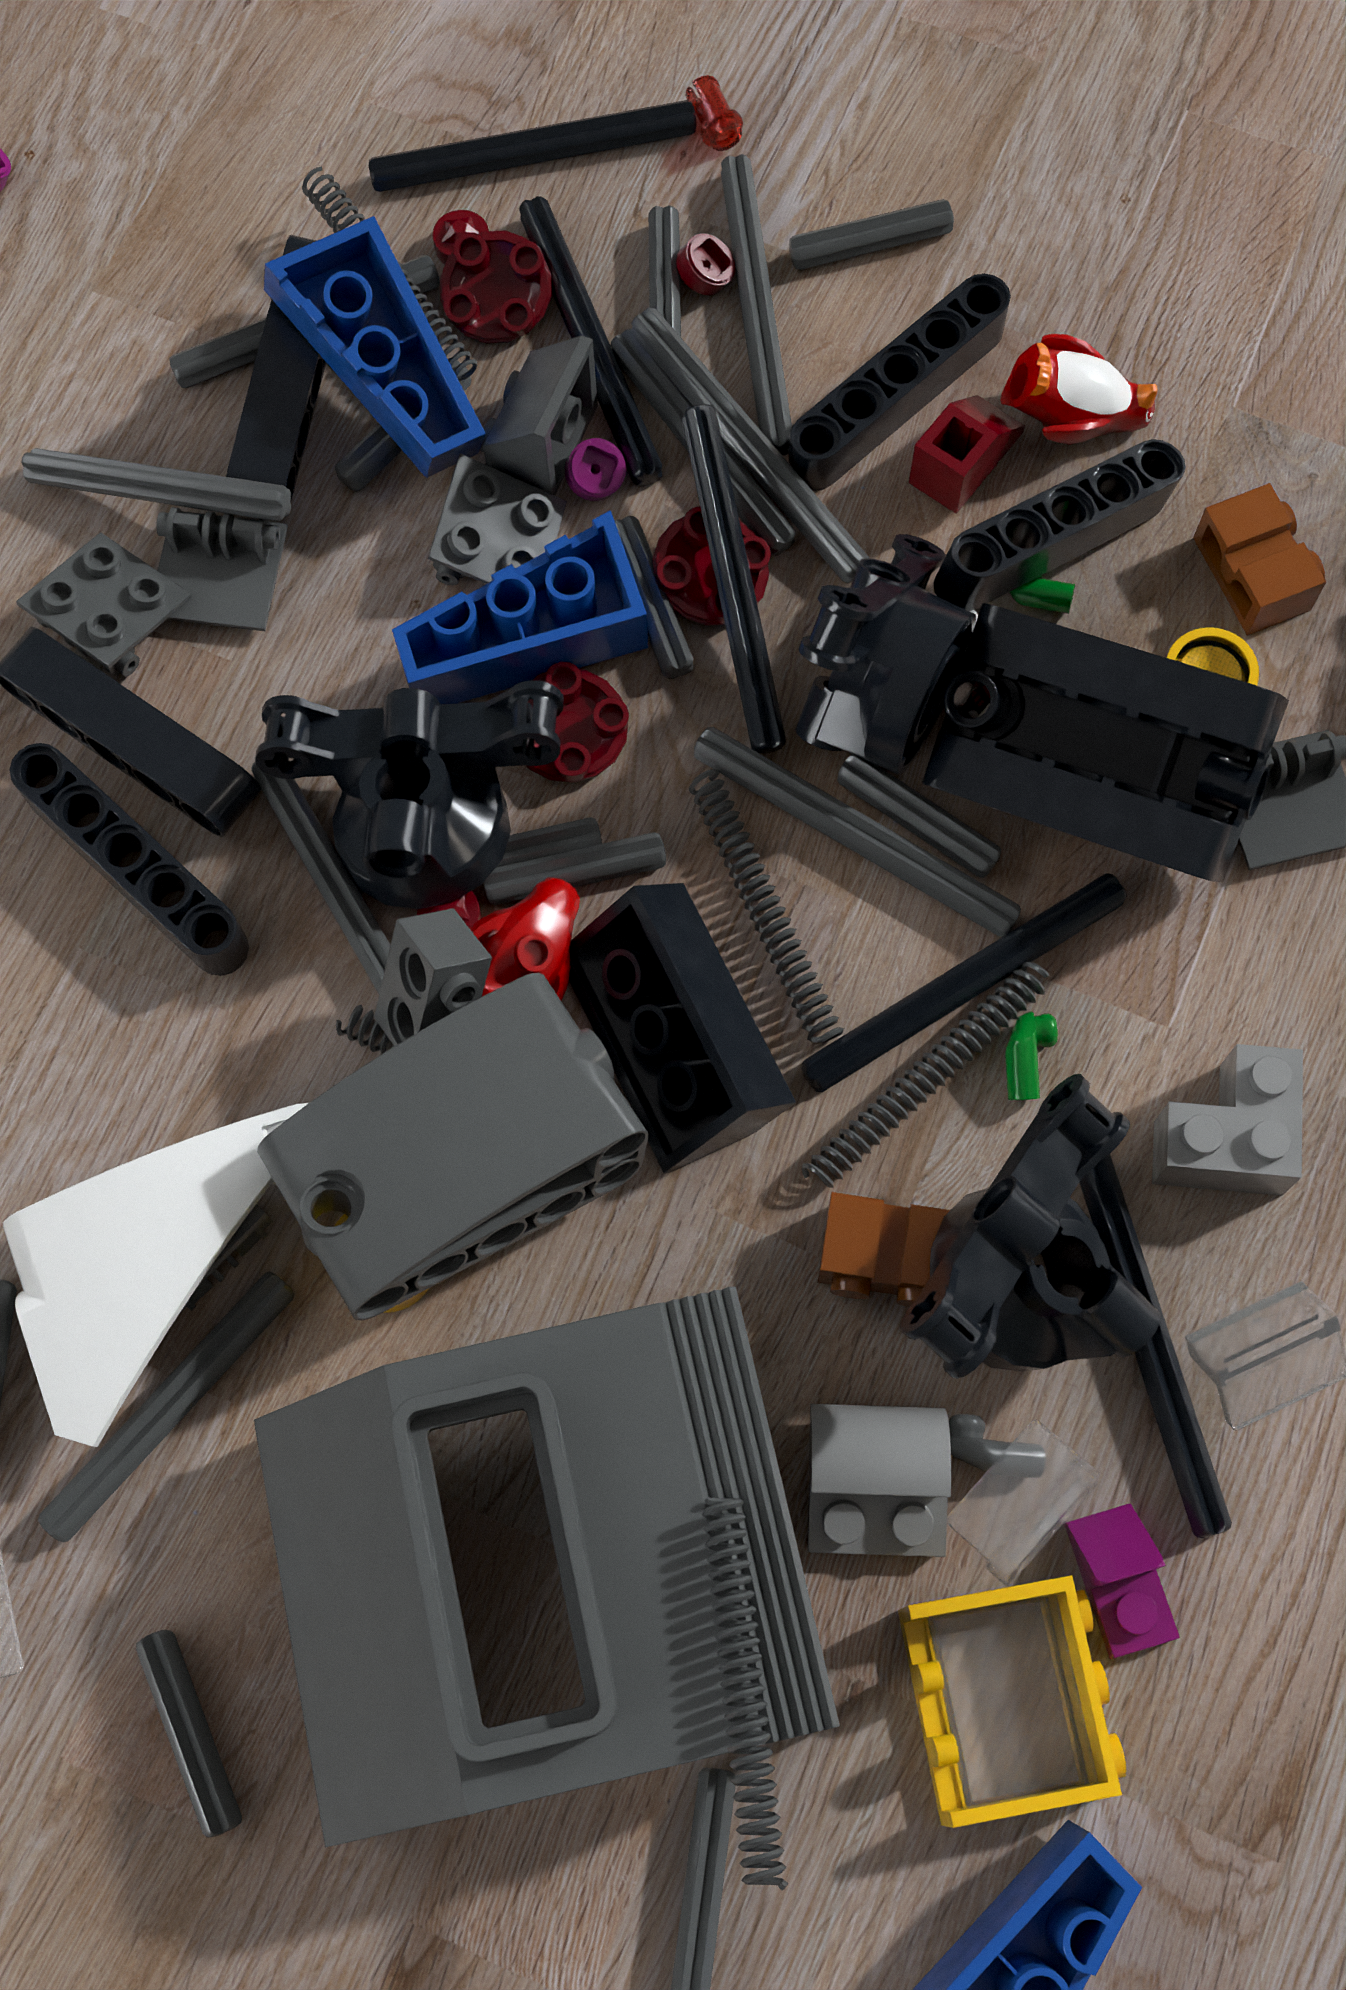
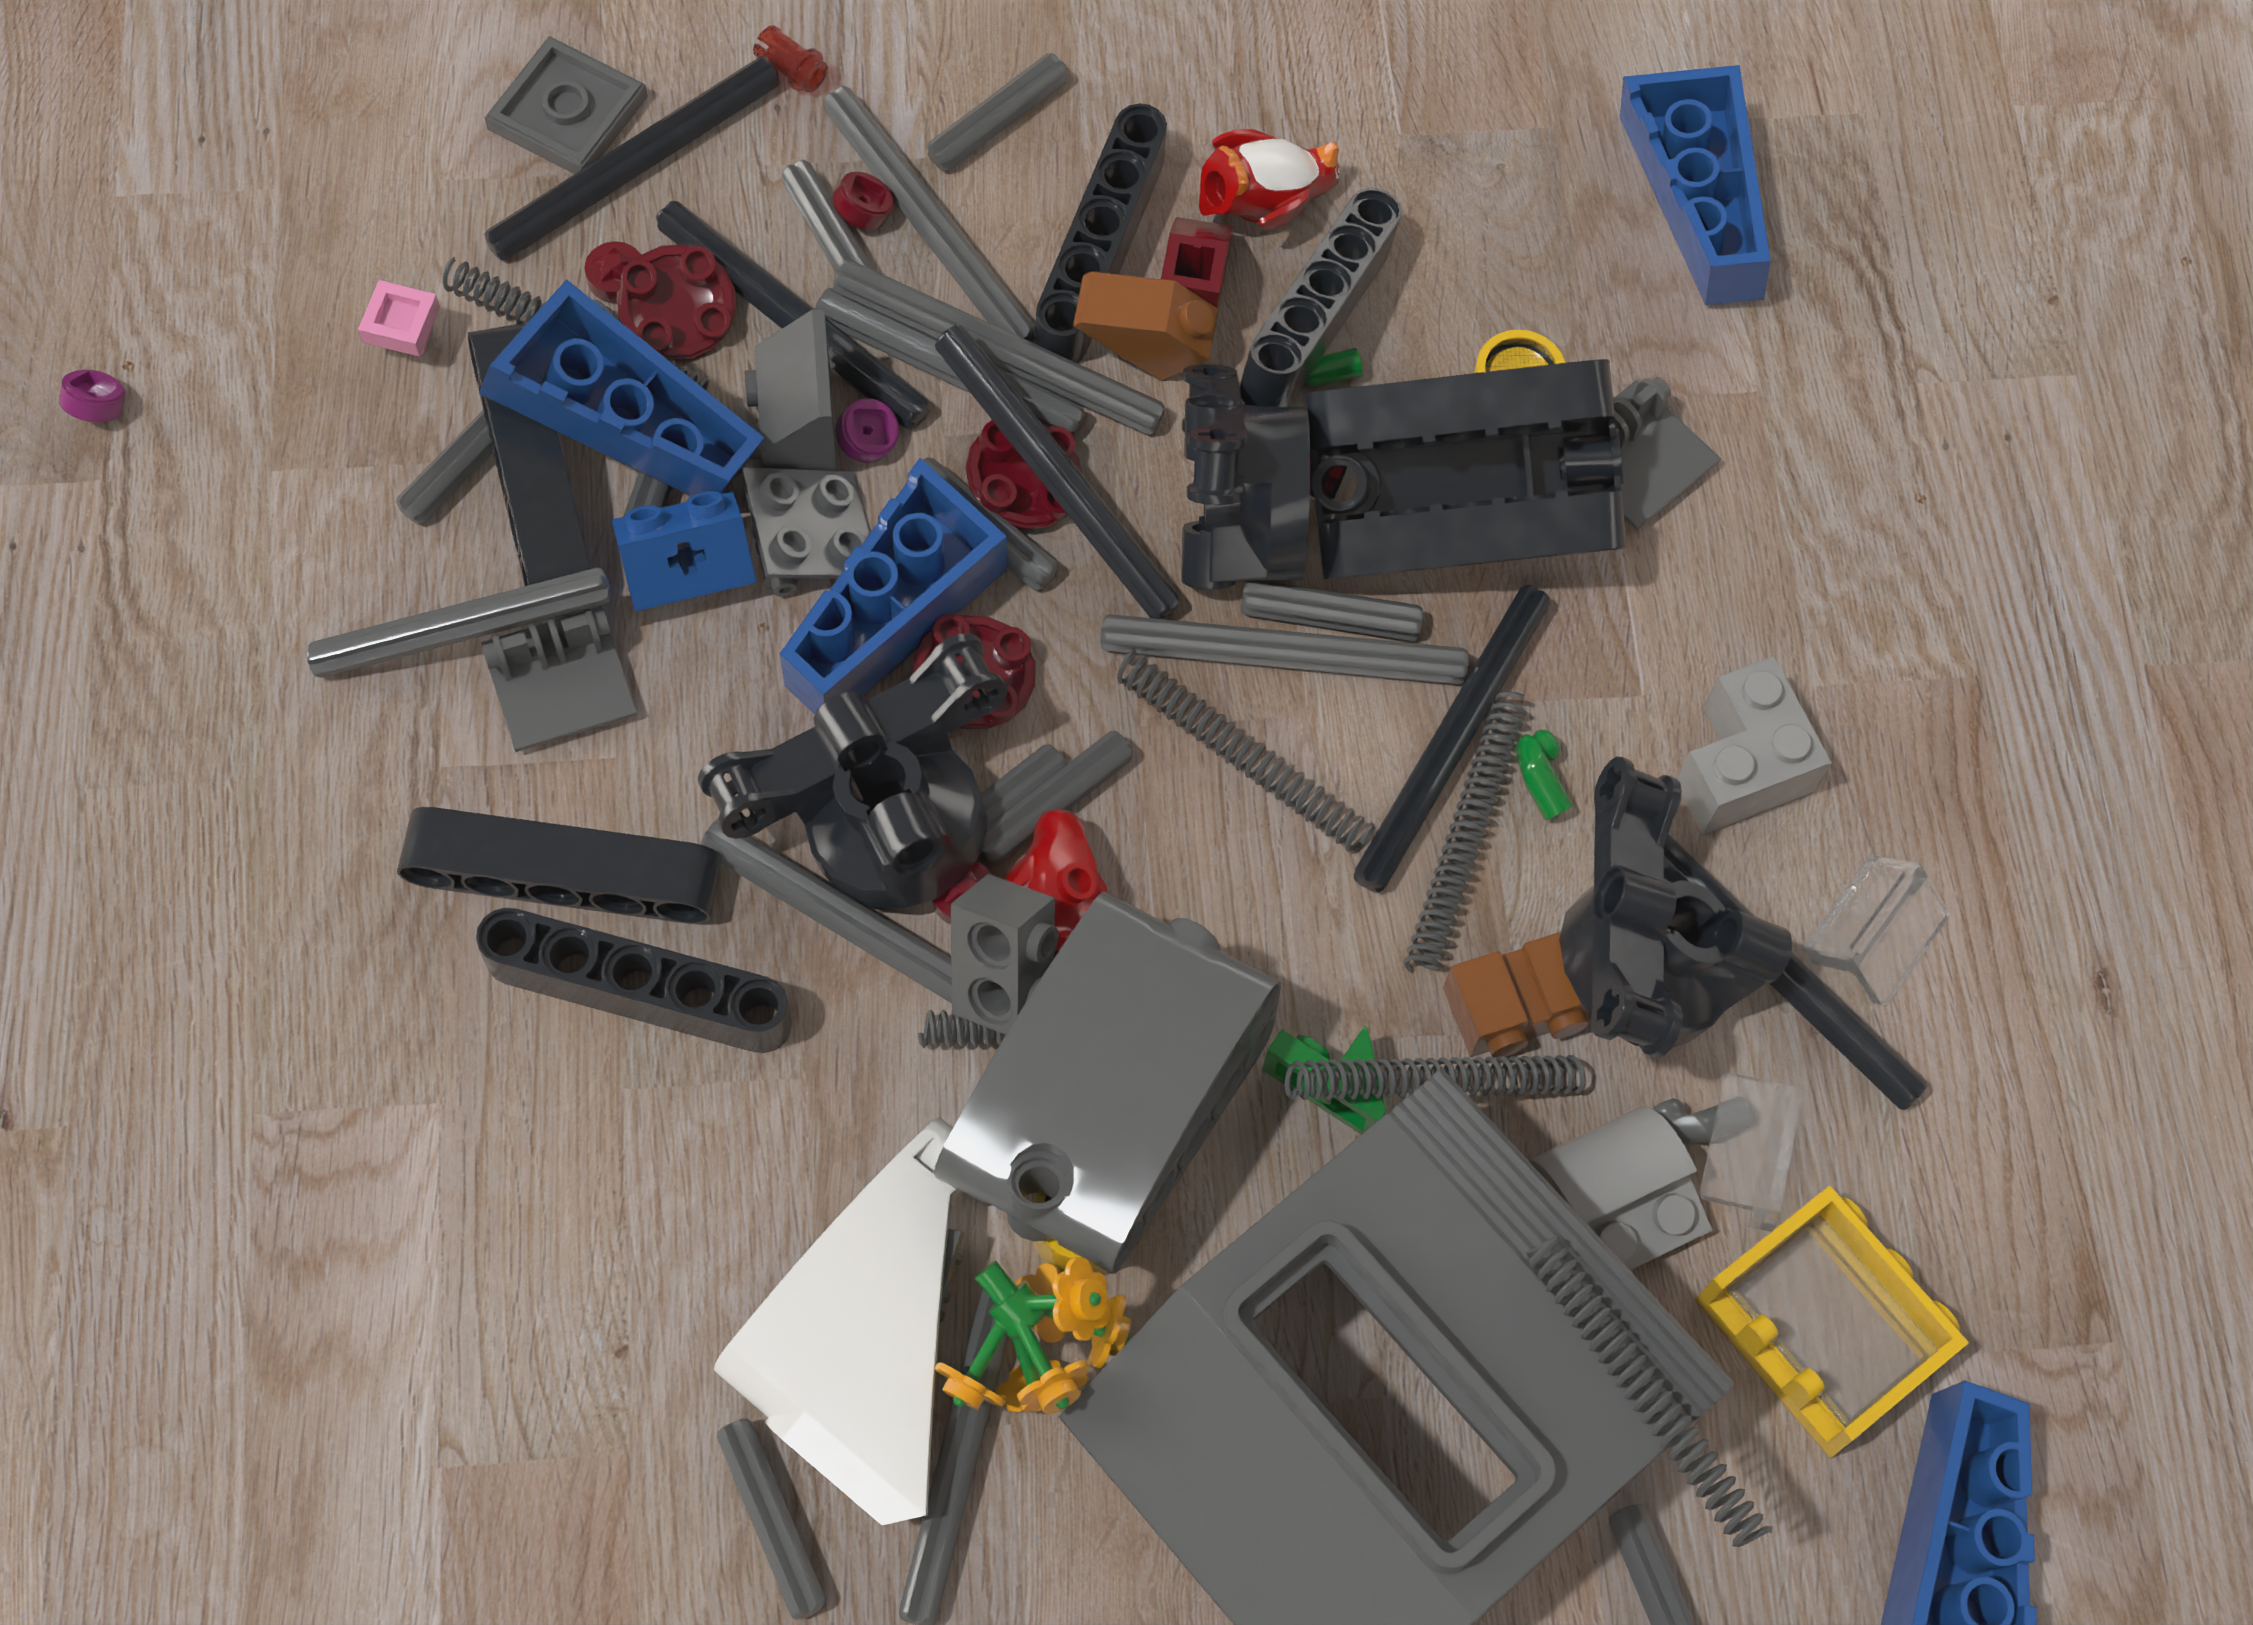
camera: 35 degrees left, 5 degrees down
(104, 602) = (470, 755): dark grey hinge -> none
(255, 203) = (399, 318): none -> bright pink tile
(285, 1327) = (1053, 1306): none -> light orange plant
(372, 503) = (711, 563): none -> blue brick
(502, 78) = (566, 106): none -> dark grey tile
(675, 1025) = (1200, 860): black slope -> none
(683, 1253) = (1355, 1113): none -> green slope
(840, 1329) = (1322, 1079): none -> dark grey piece
(888, 475) = (1147, 321): none -> dark orange slope
(1122, 1580) = (1858, 1166): magenta slope -> none
(1258, 560) = (1499, 259): dark orange brick -> none

